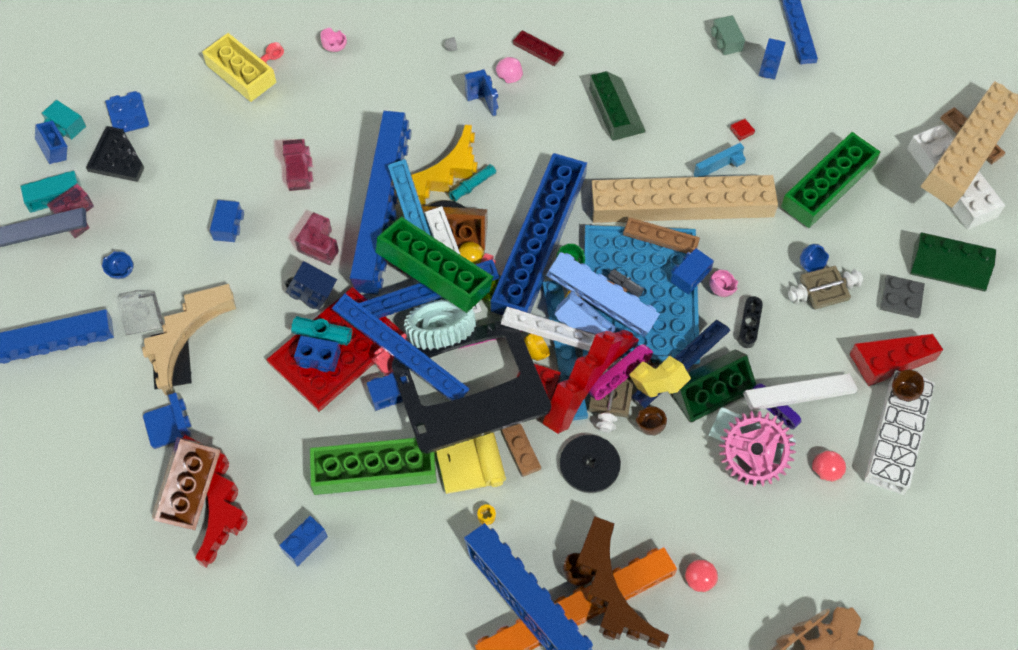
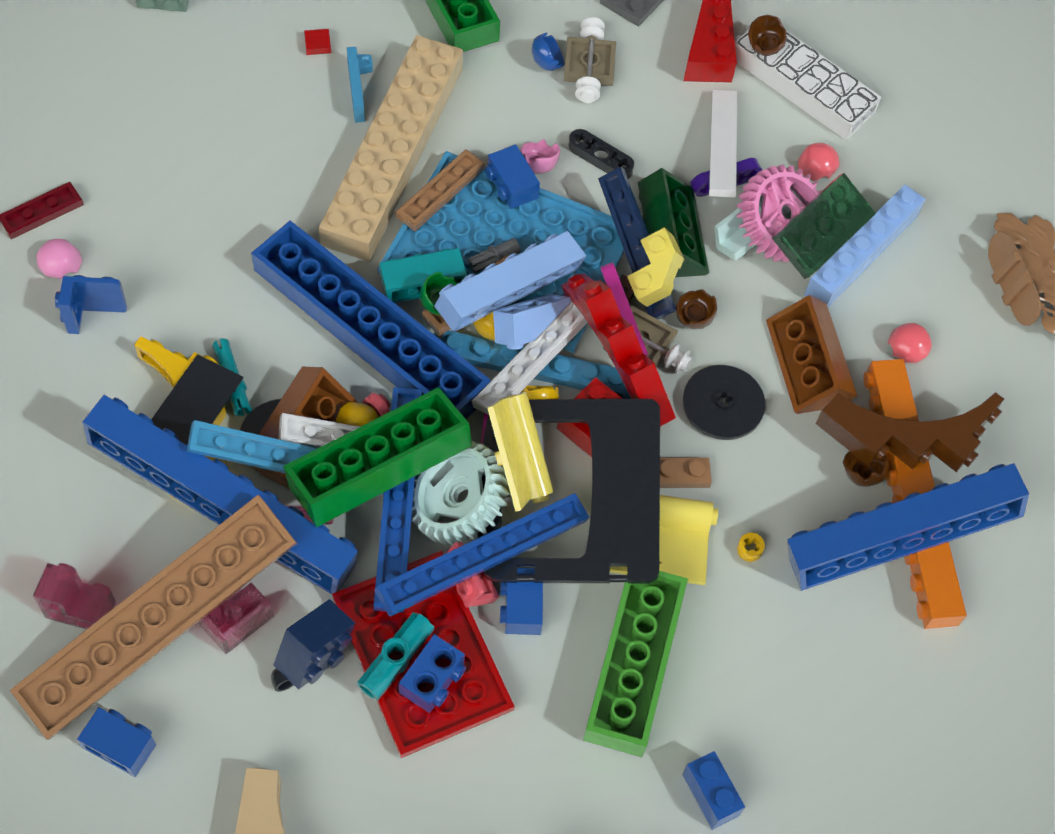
camera: 75 degrees left, 0 degrees up
(298, 202) = (153, 617): none -> medium nougat plate
(442, 168) = (196, 396): none -> black window
(476, 340) = (520, 450): none -> light yellow door
(596, 255) = (405, 276): none -> teal brick
(615, 105) = (200, 161): dark green slope -> none
(653, 508) = (810, 355): none -> dark orange slope
(759, 477) = (823, 225): none -> clear green plate
(767, 518) = (865, 246): none -> light blue brick

